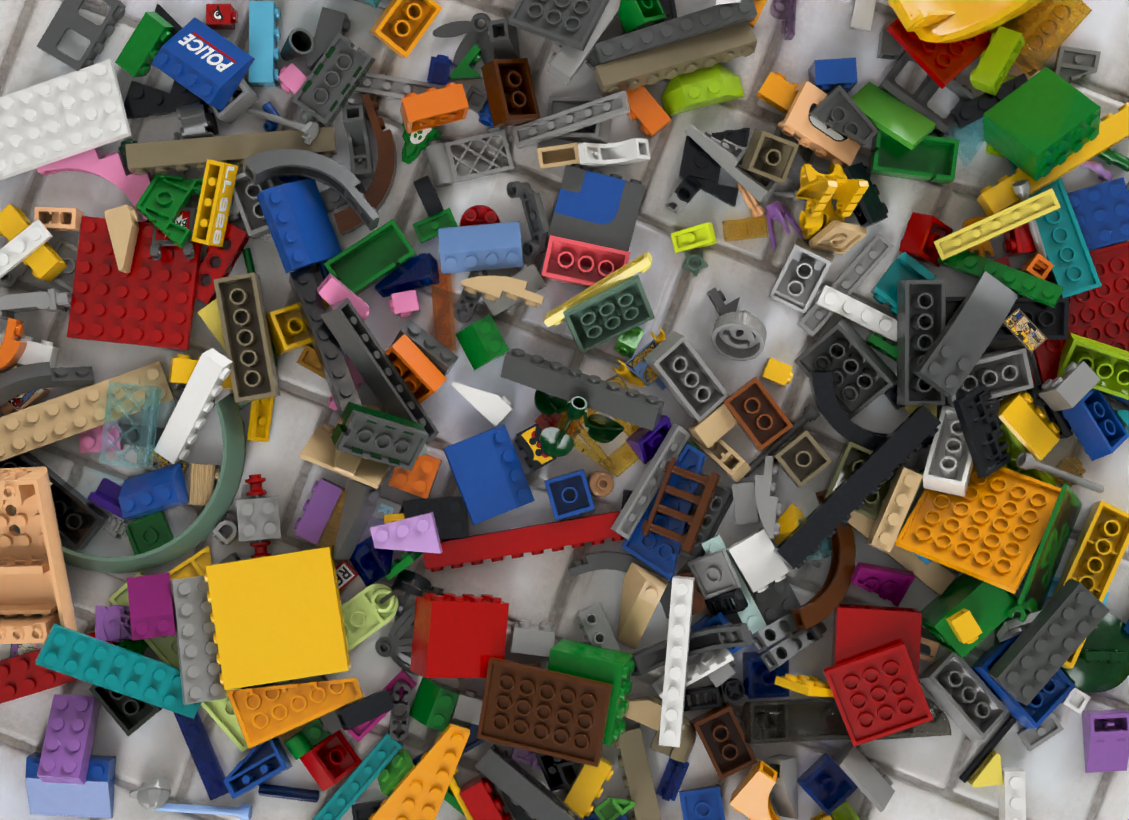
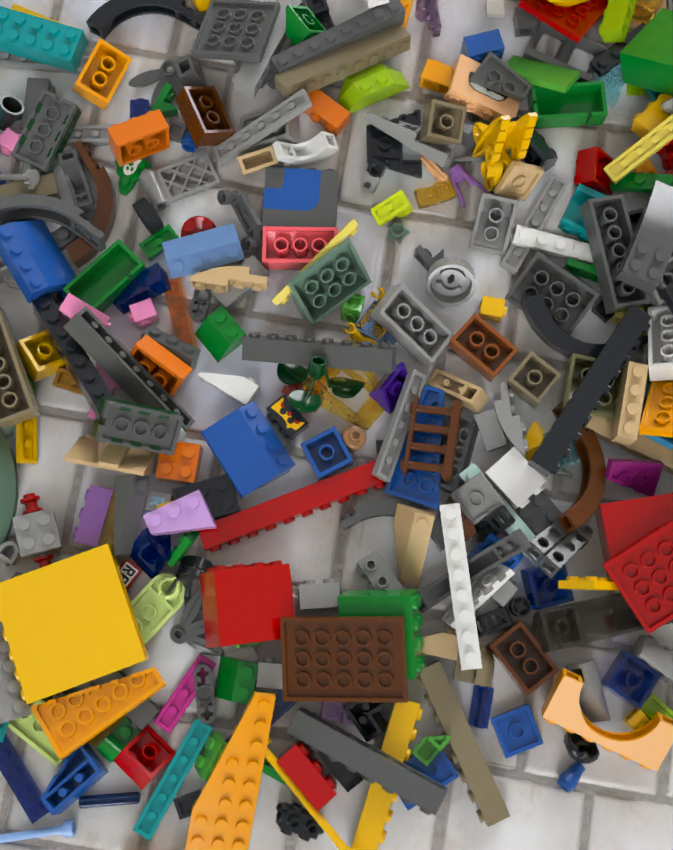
camera: 10 degrees left, 10 degrees down
(365, 709) = (169, 695): black window -> none
(713, 426) = (445, 365): tan brick -> none
(809, 414) = (529, 341): dark grey piece -> none

